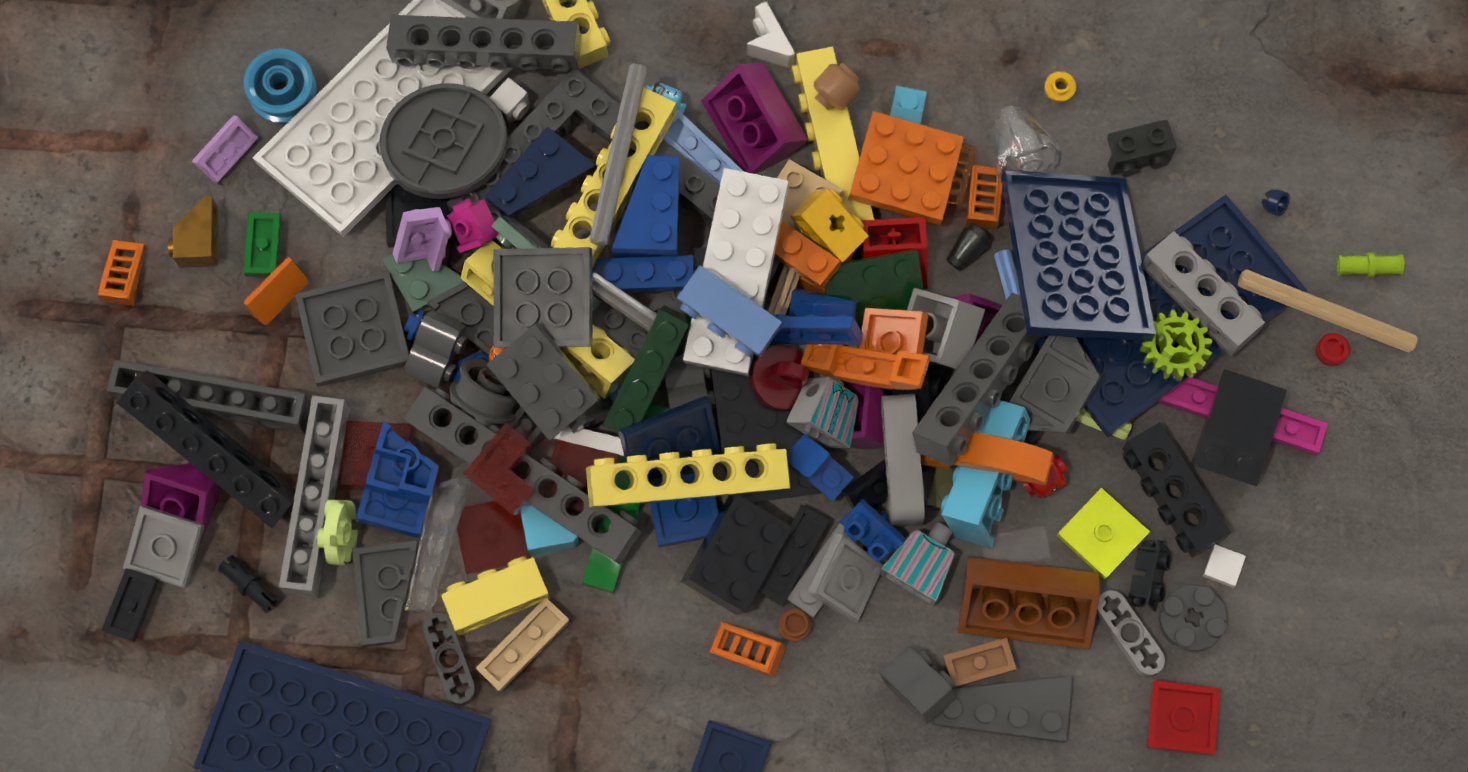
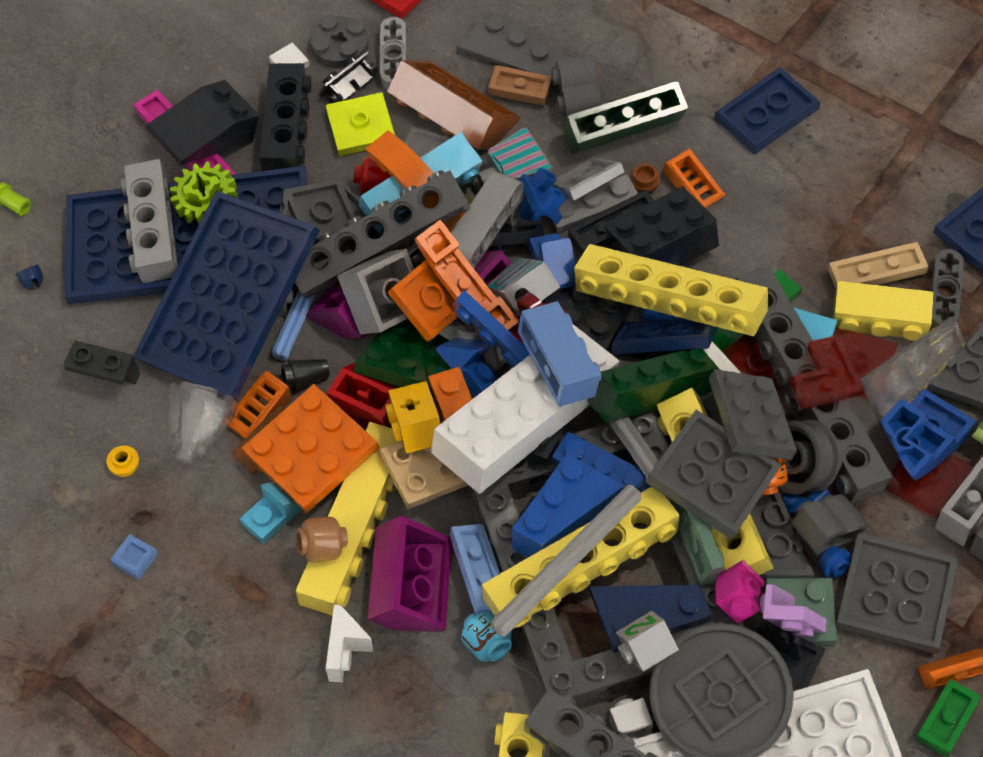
camera: 145 degrees left, 15 degrees down
(520, 134) = (646, 641): none -> light grey brick
(850, 671) = (624, 117): none -> dark green brick
(989, 19) = (134, 556): none -> medium blue tile
(1327, 311) = (66, 172): tan axle -> none
(1332, 349) = (83, 157): red tile -> none

